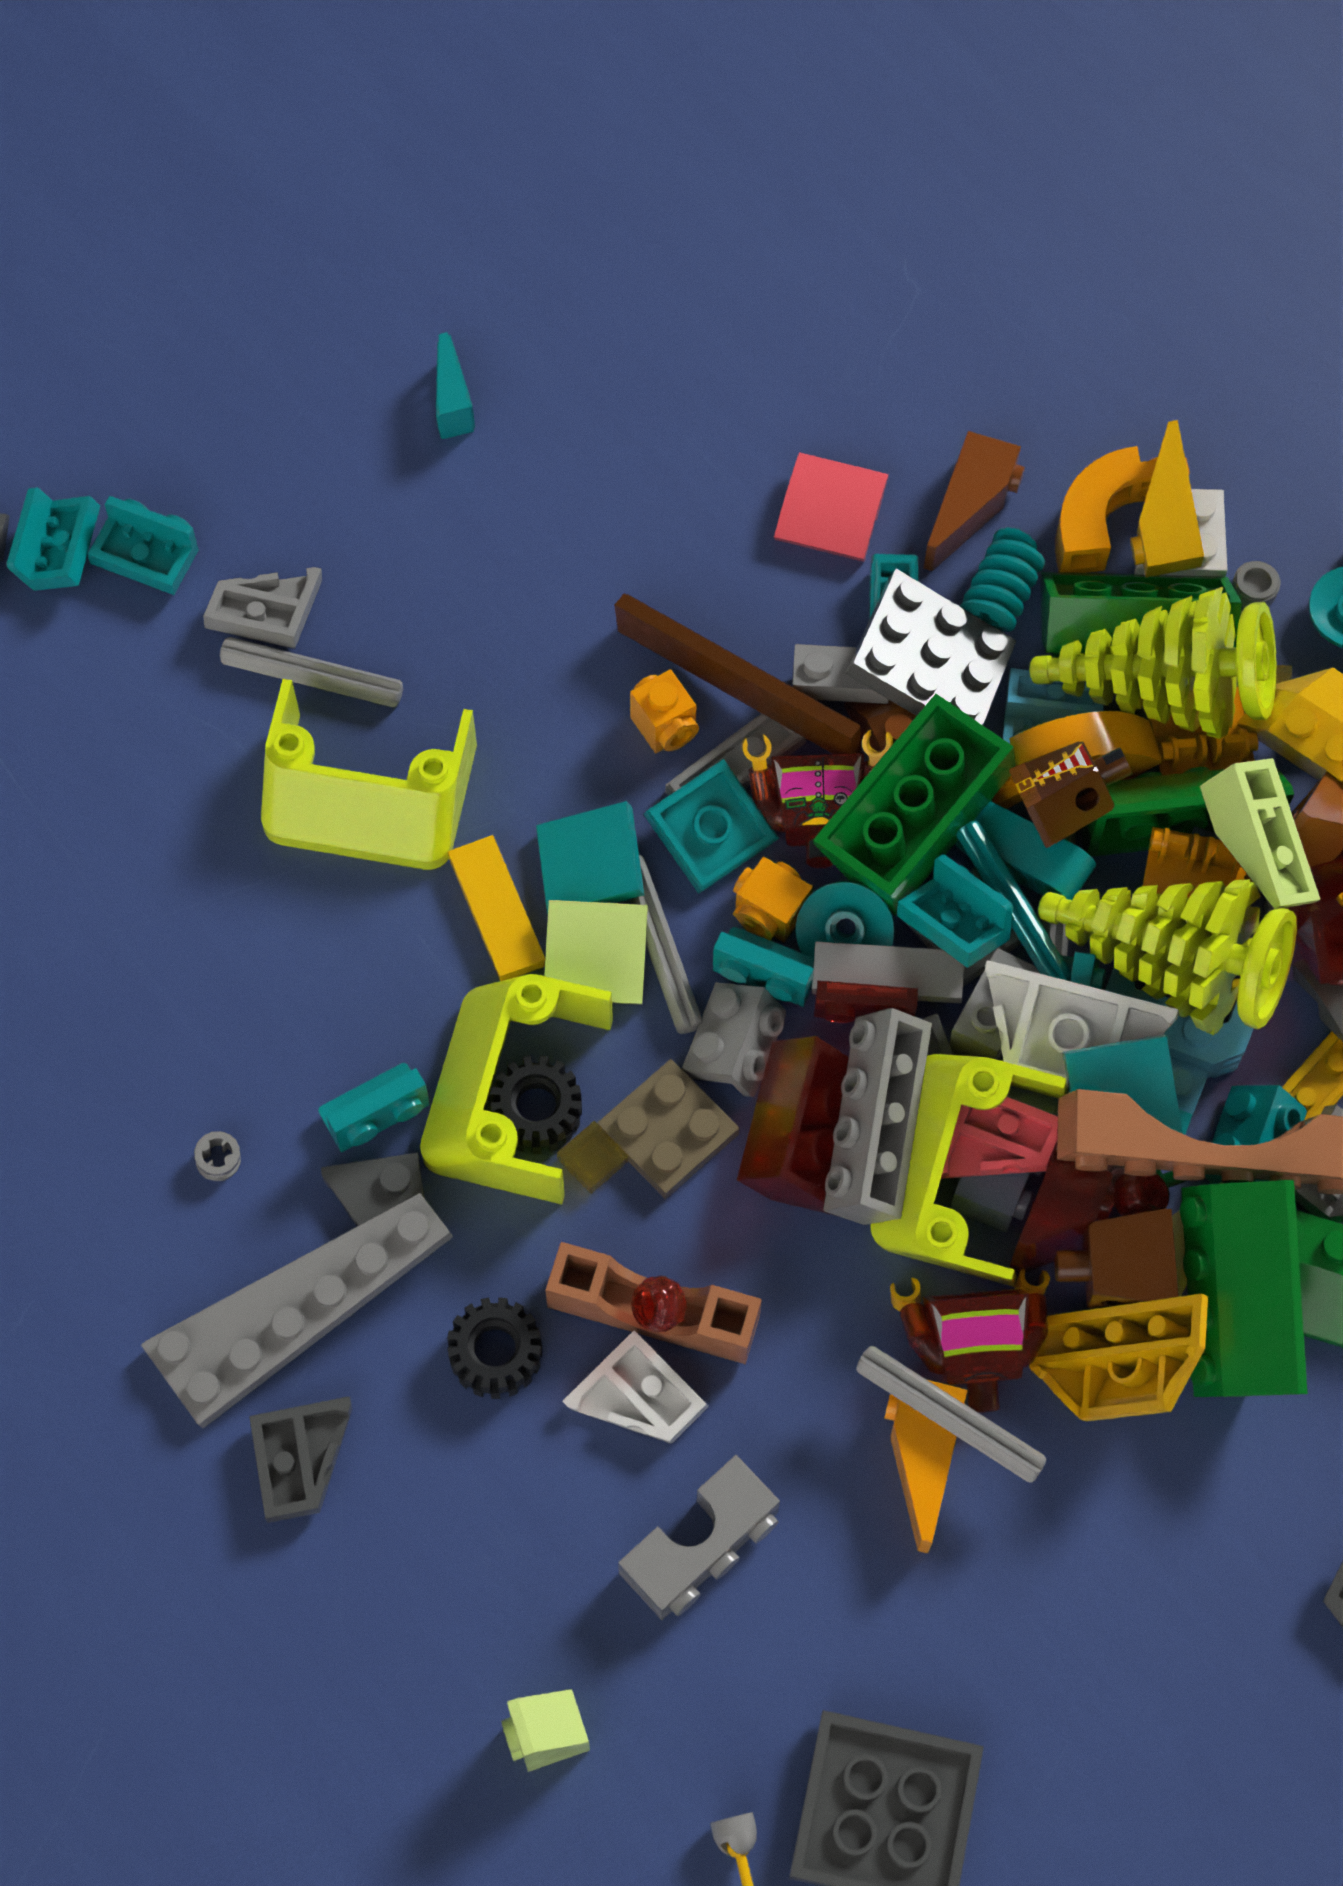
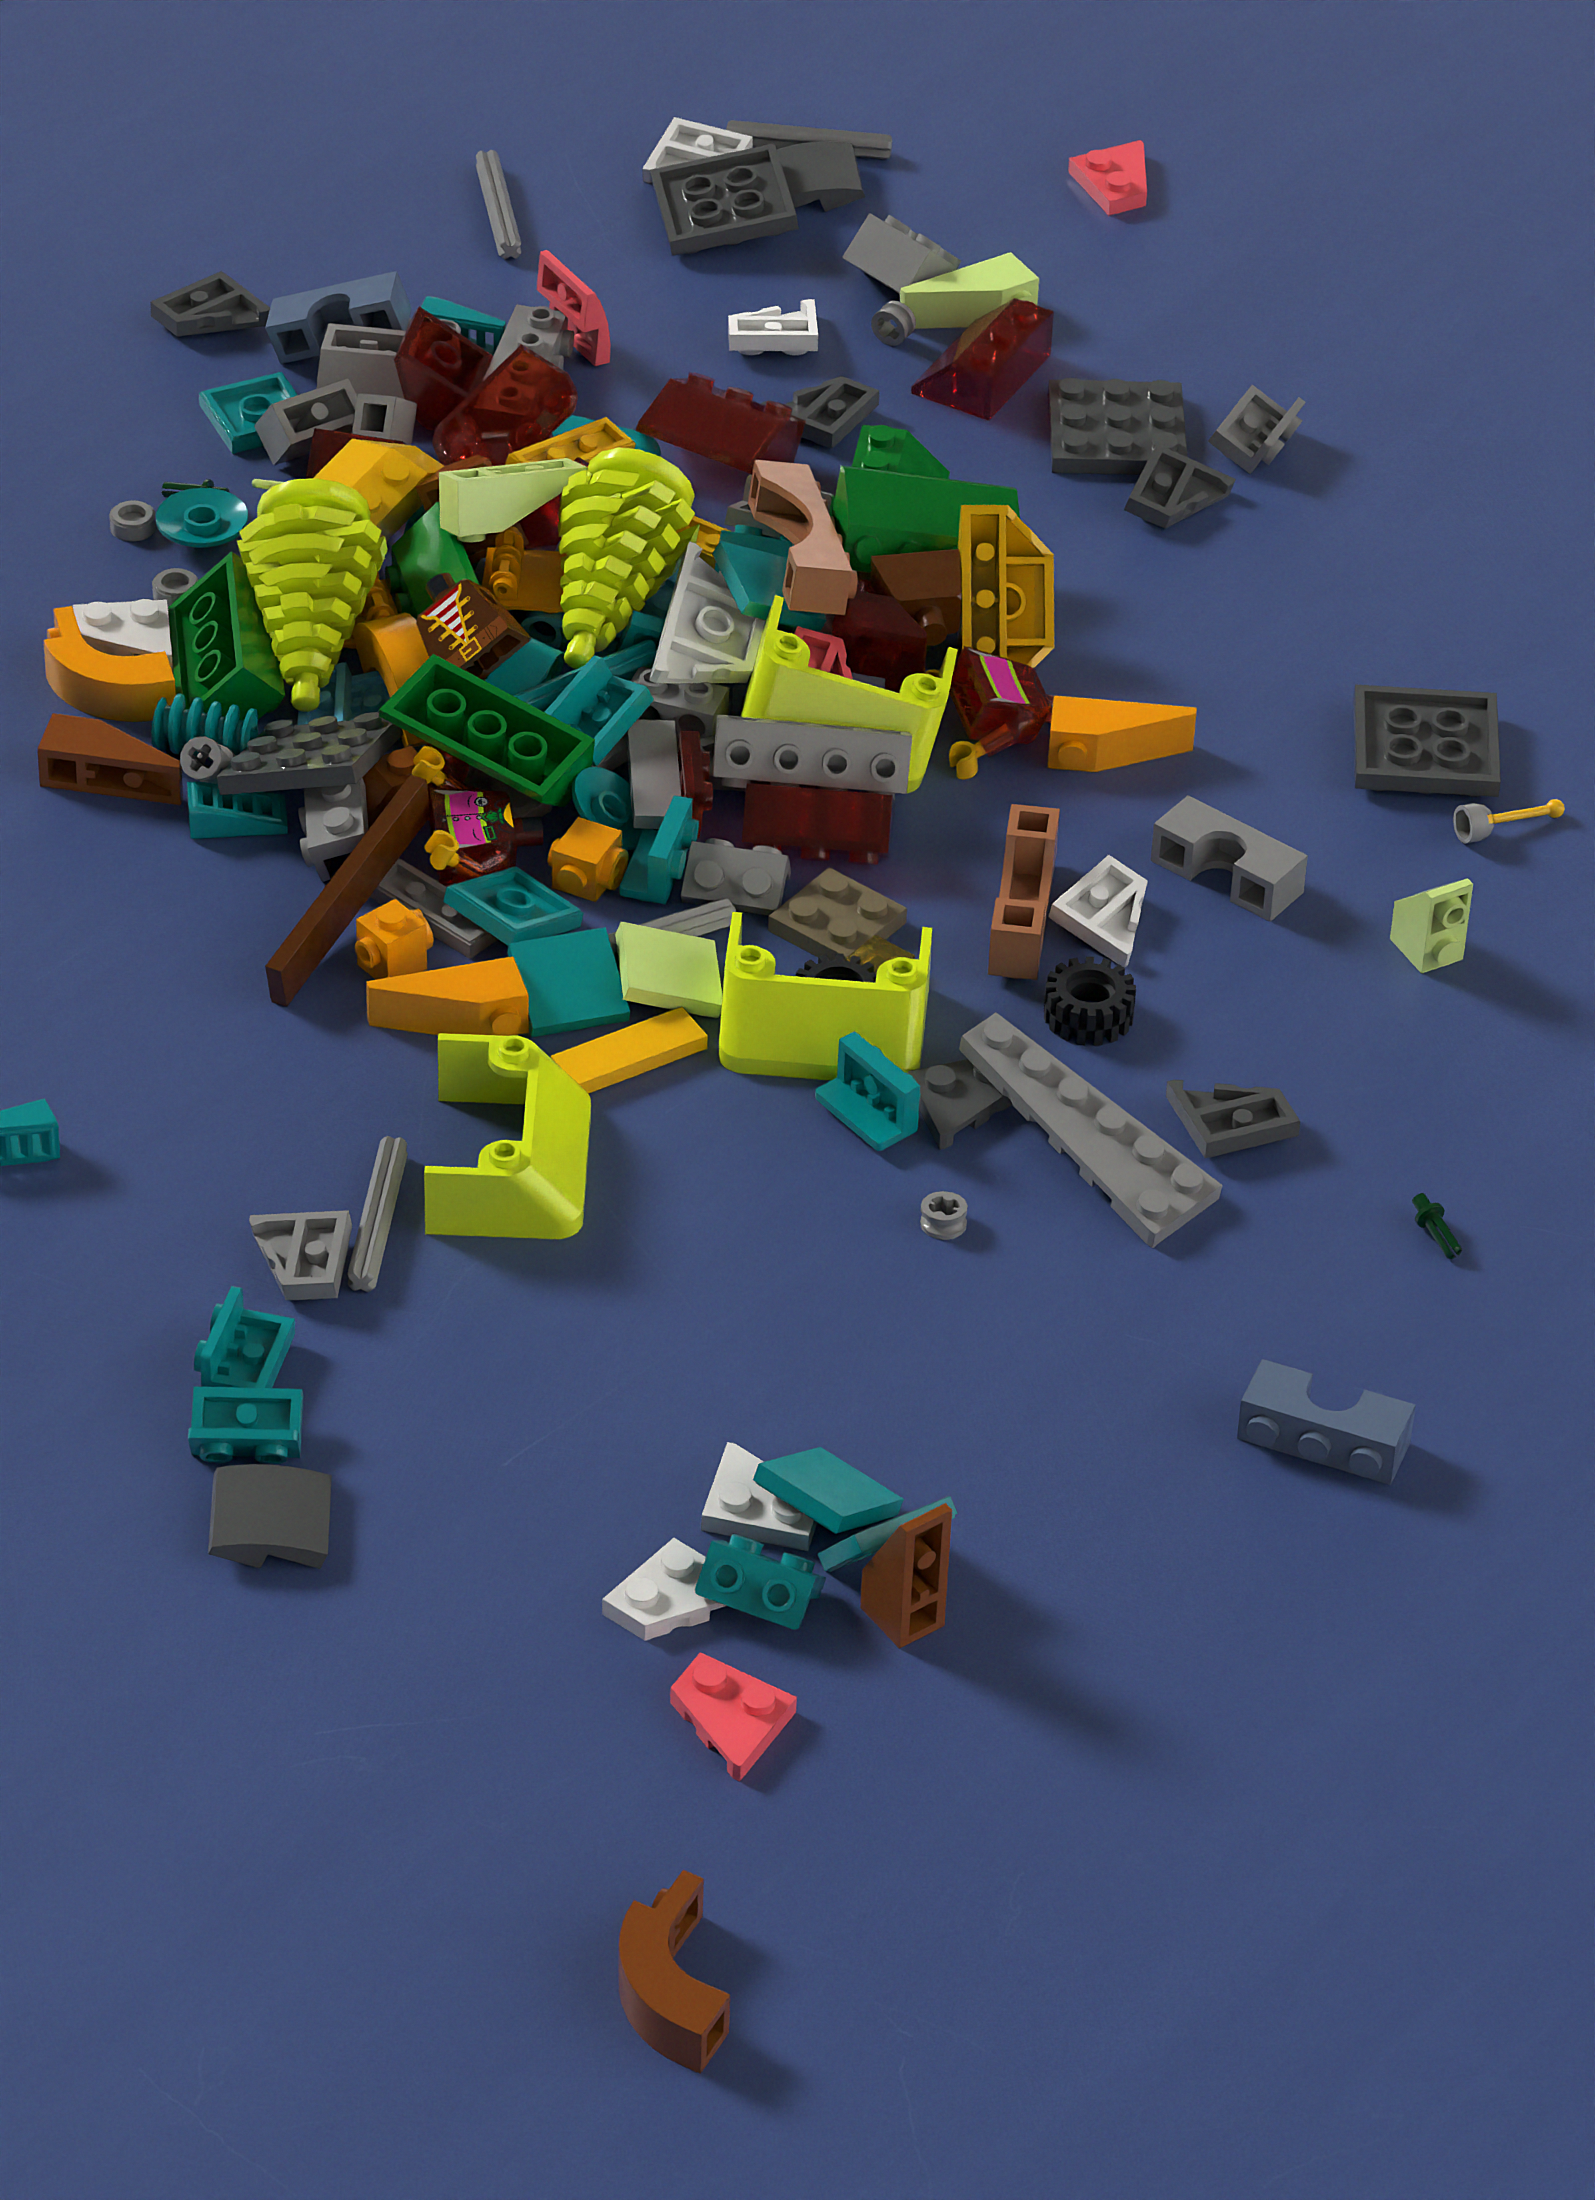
camera: 100 degrees left, 25 degrees down
(114, 1630) = (1430, 1216): none -> dark green piece
(575, 762) = (453, 1000): none -> light orange slope
(658, 1304) = (1030, 872): clear red piece -> none
(831, 506) = (123, 856): coral slope -> none
(939, 572) = (195, 766): none -> light grey bush
(951, 1414) = (1082, 694): light grey axle -> none
(1168, 526) = (121, 608): yellow slope -> none

